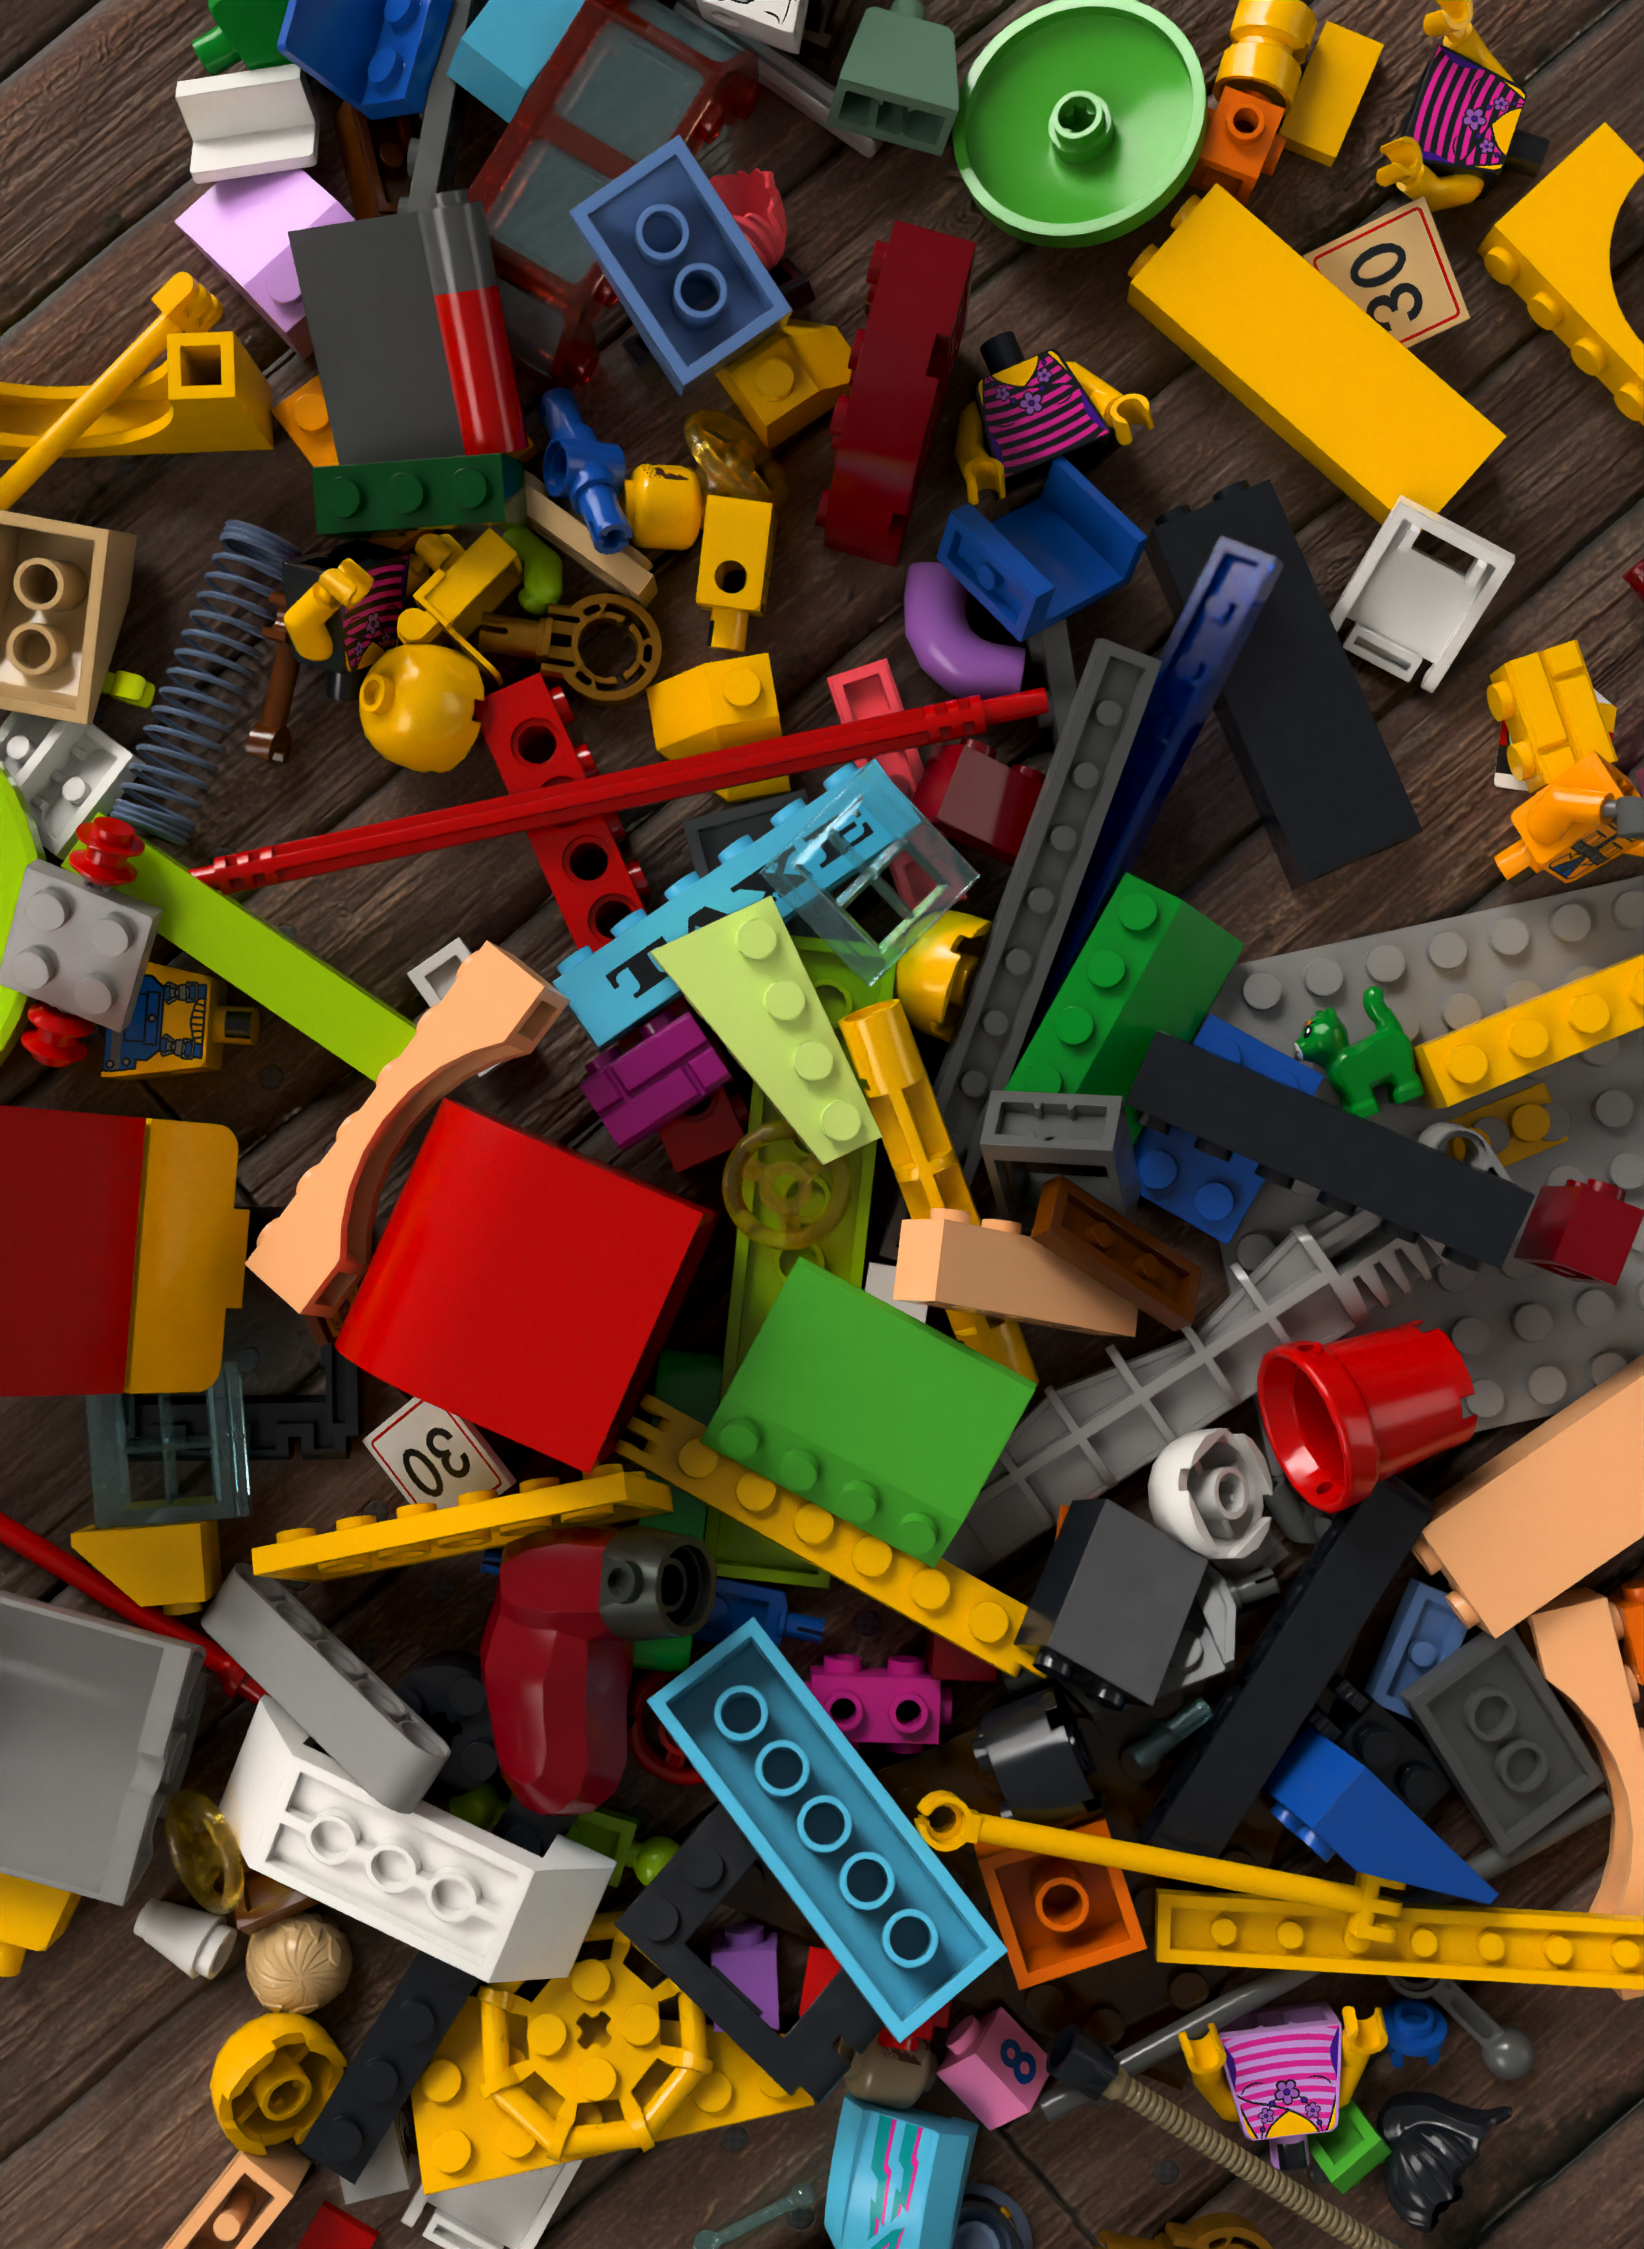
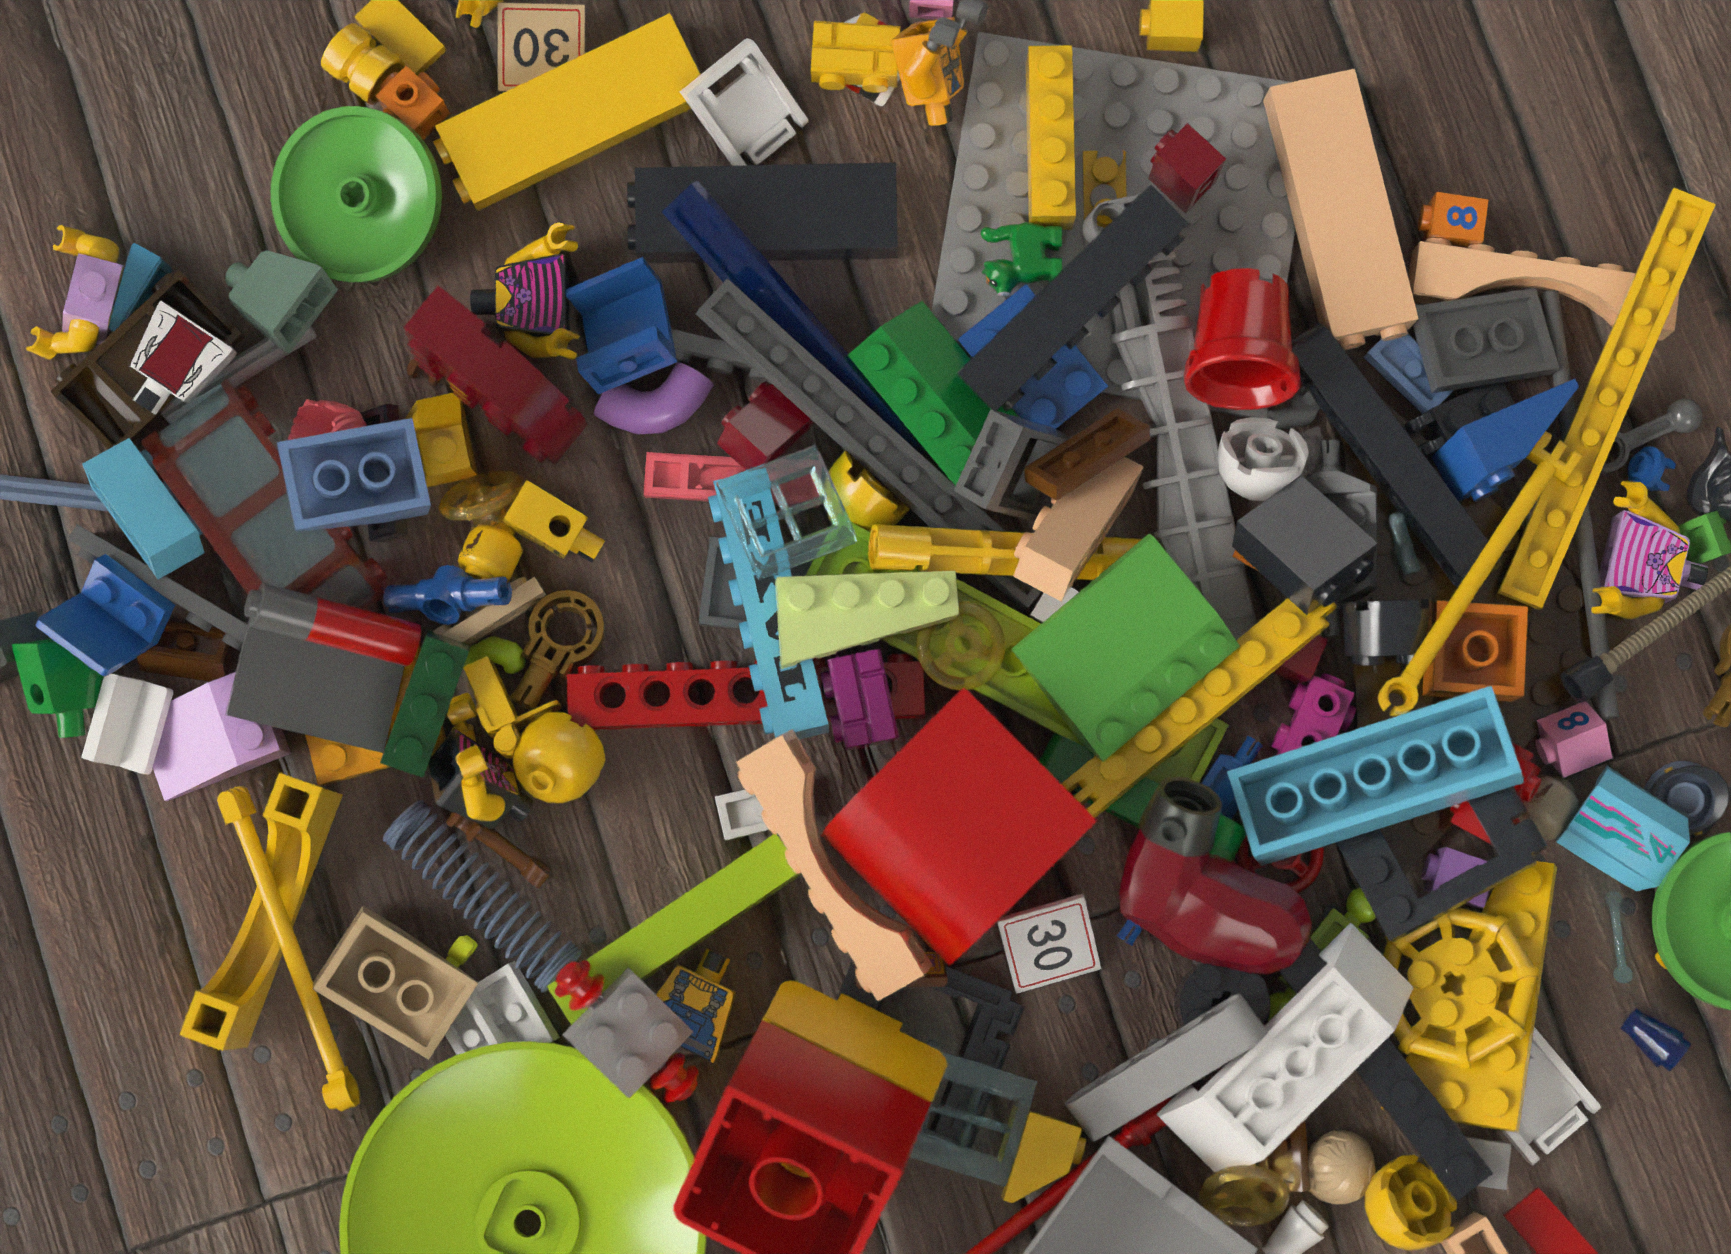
camera: 70 degrees left, 5 degrees down
(474, 1525) = (1101, 923): yellow plate -> none
(616, 791) = (665, 656): red axle -> none
(719, 709) = (648, 573): yellow slope -> none

